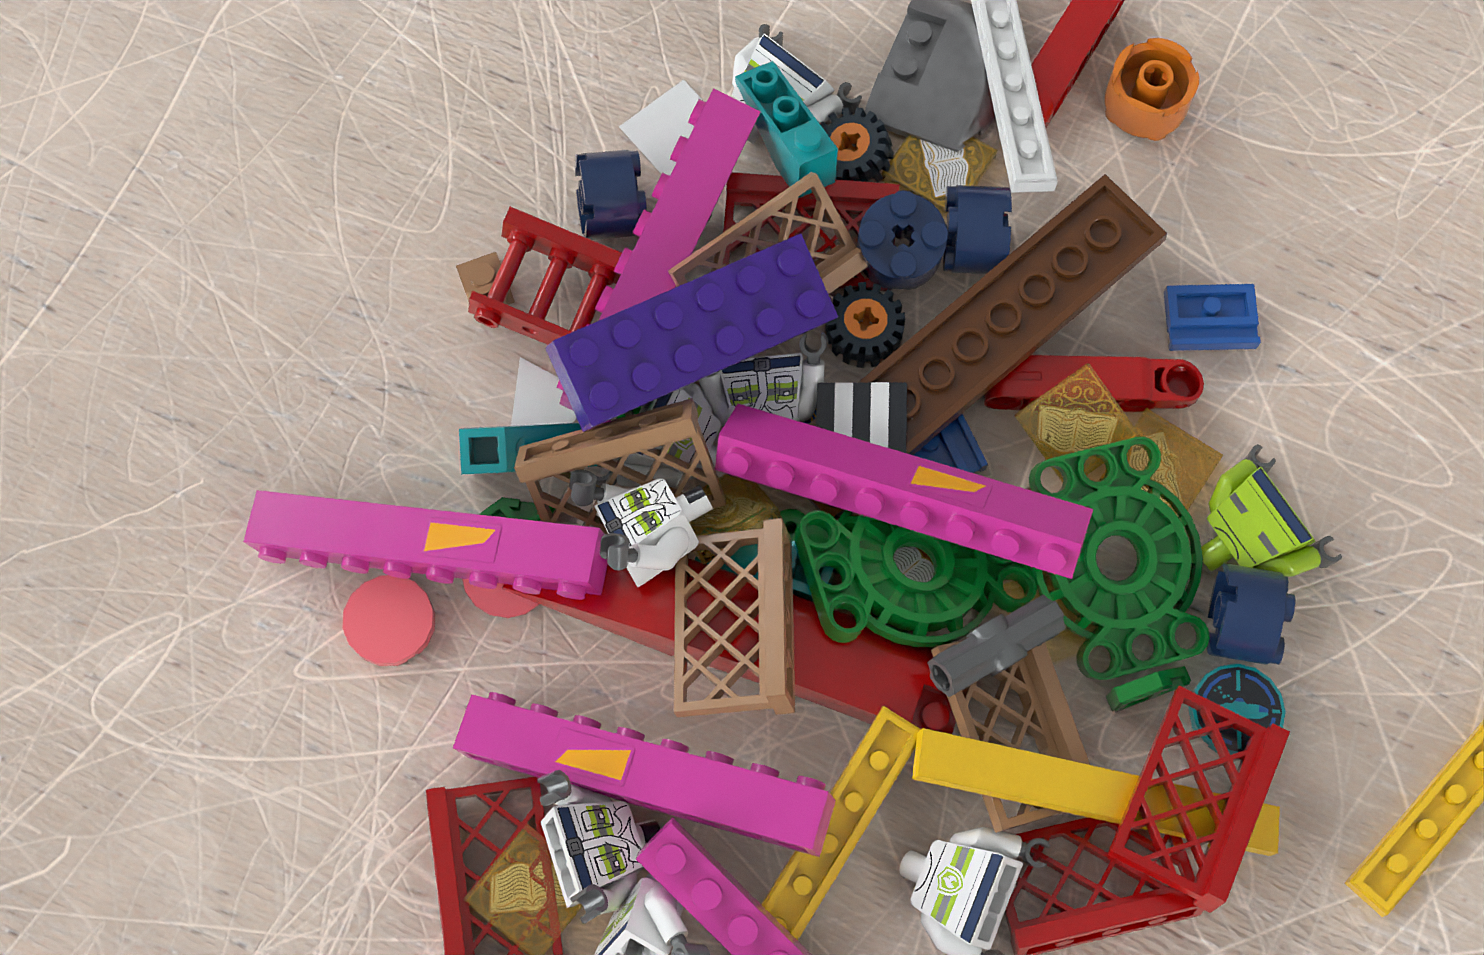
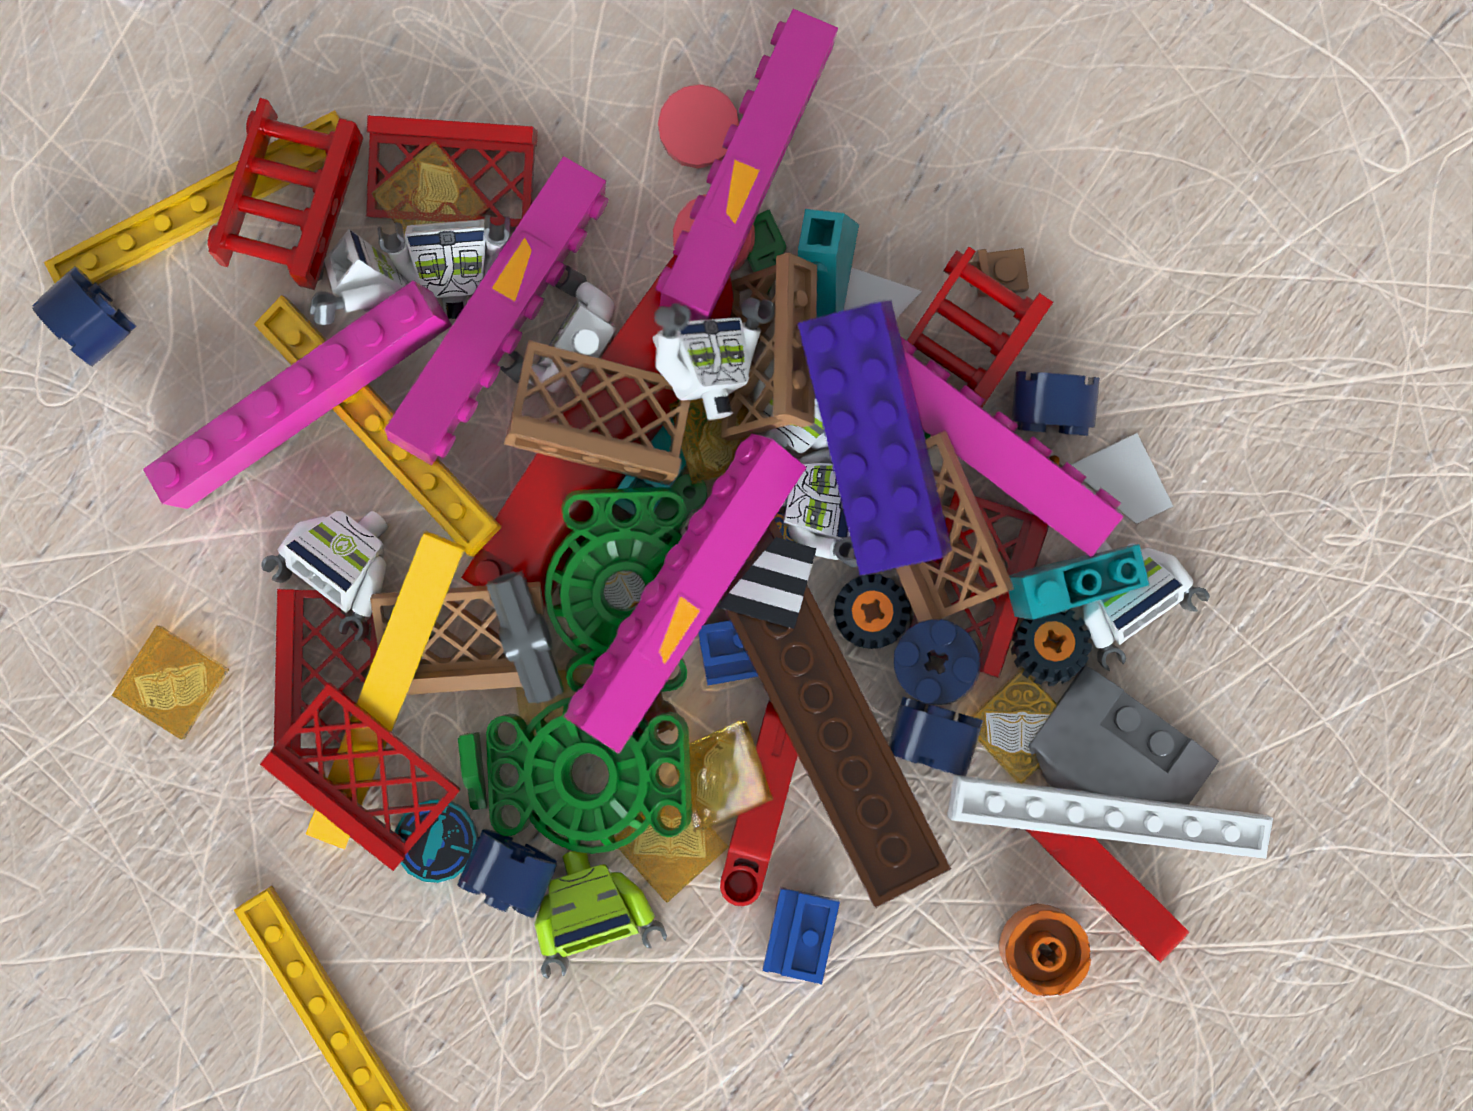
camera: 100 degrees right, 15 degrees up
(643, 683) = (583, 331): none -> white torso

